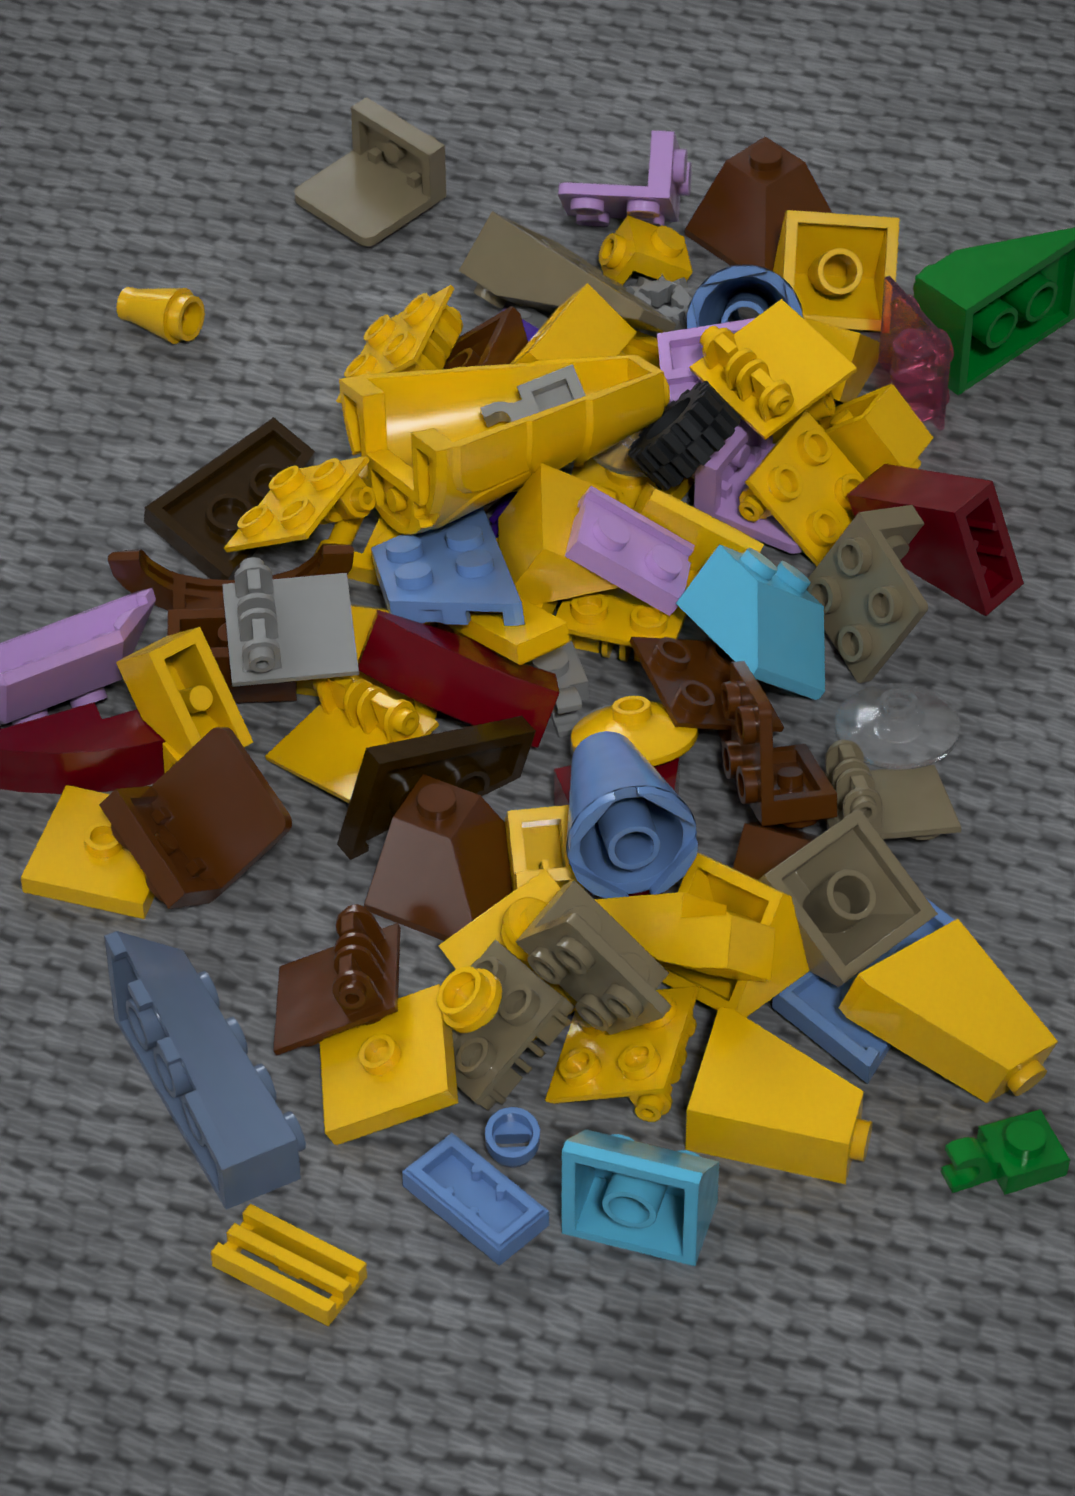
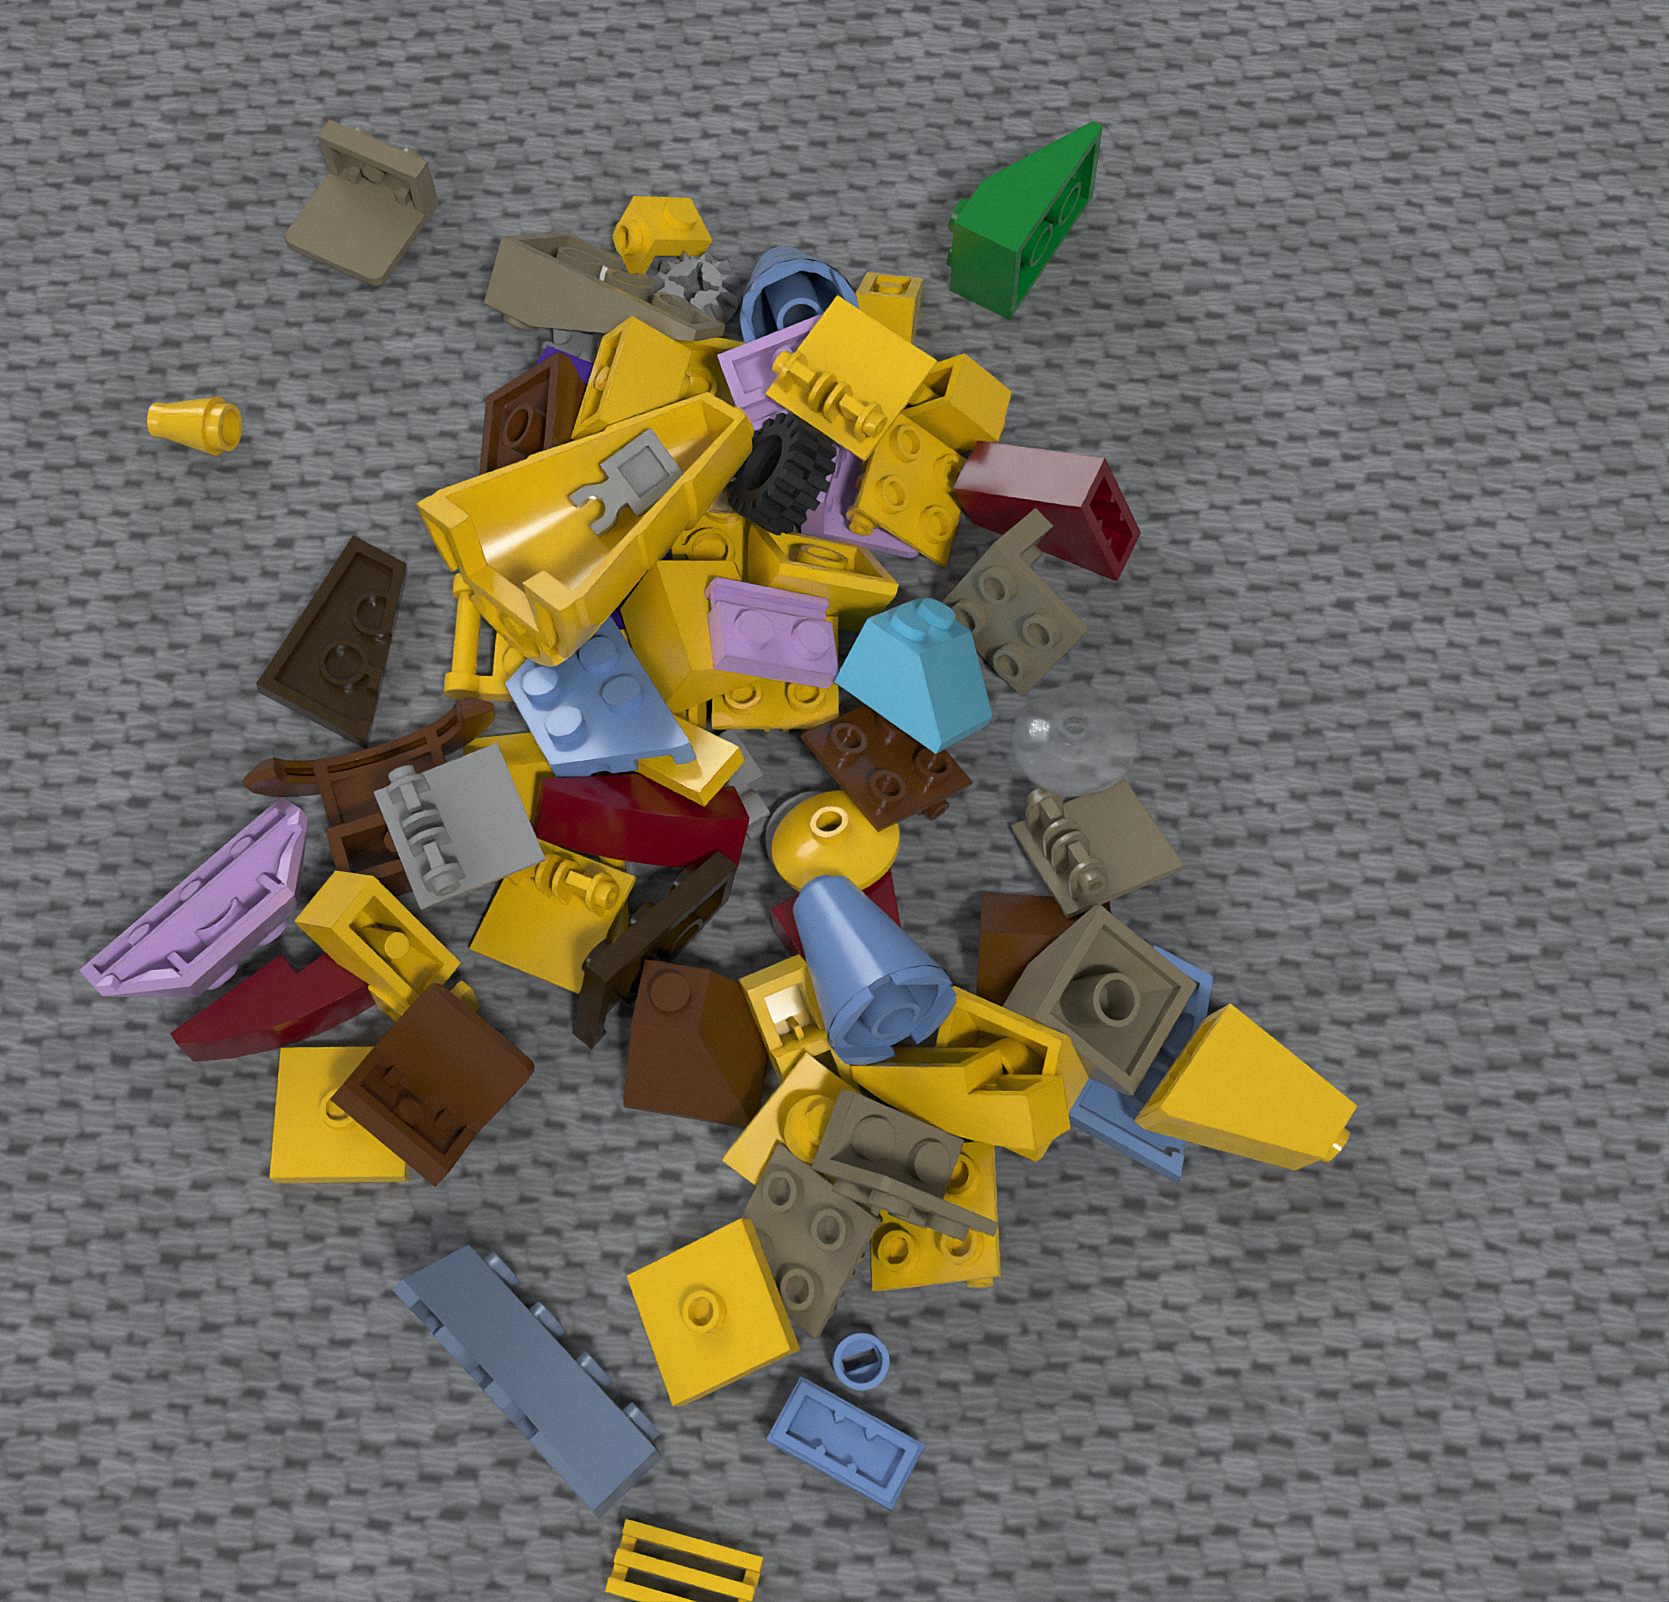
camera: 15 degrees left, 20 degrees up
(302, 501) = (417, 648): yellow hinge -> none
(339, 985) = (635, 1232): reddish brown hinge -> none
(411, 340) = (458, 413): yellow hinge -> none
(469, 998) = (781, 1237): yellow plate -> none
(637, 1195) = (1010, 1396): medium azure slope -> none
(654, 203) = (661, 140): lavender bracket -> none
(748, 202) = (762, 154): reddish brown slope -> none
(773, 1105) = (1101, 1246): yellow slope -> none
(777, 782) = (985, 845): reddish brown bracket -> none
(838, 265) = (859, 211): yellow slope -> none
(915, 354) = (969, 300): clear pink hinge -> none
(1012, 1151) = (1340, 1227): green plate -> none

